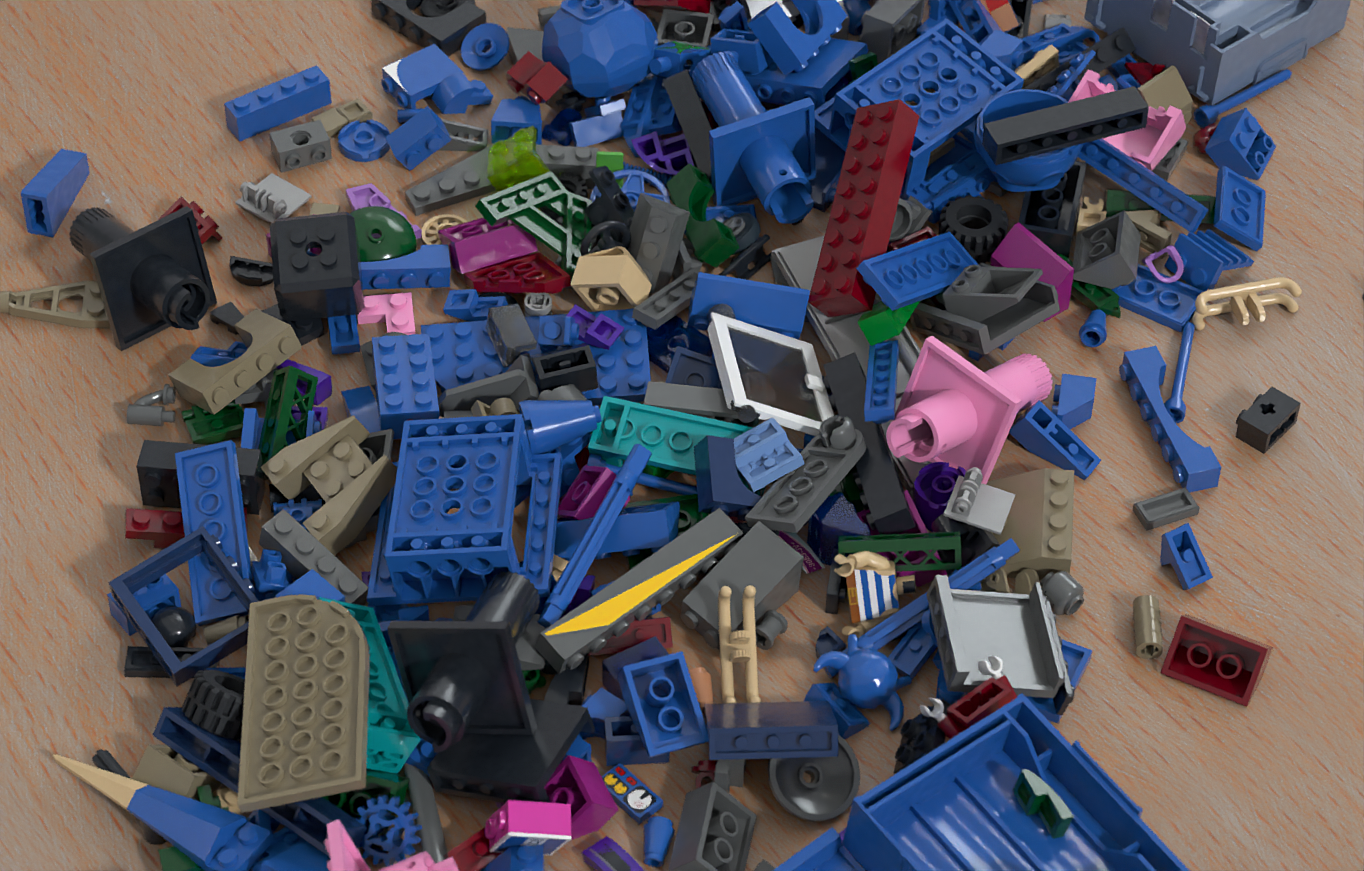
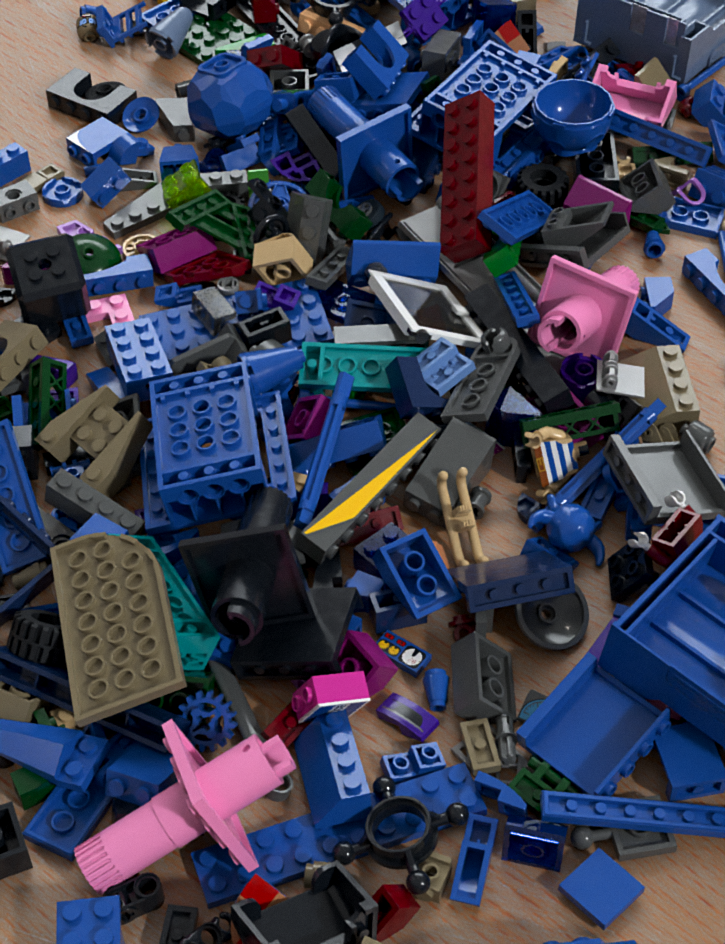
camera: 10 degrees left, 0 degrees up
(269, 575) = (59, 523): blue hips -> none
(535, 78) = (186, 128): dark red brick -> none
(1065, 125) = (601, 97): black brick -> none

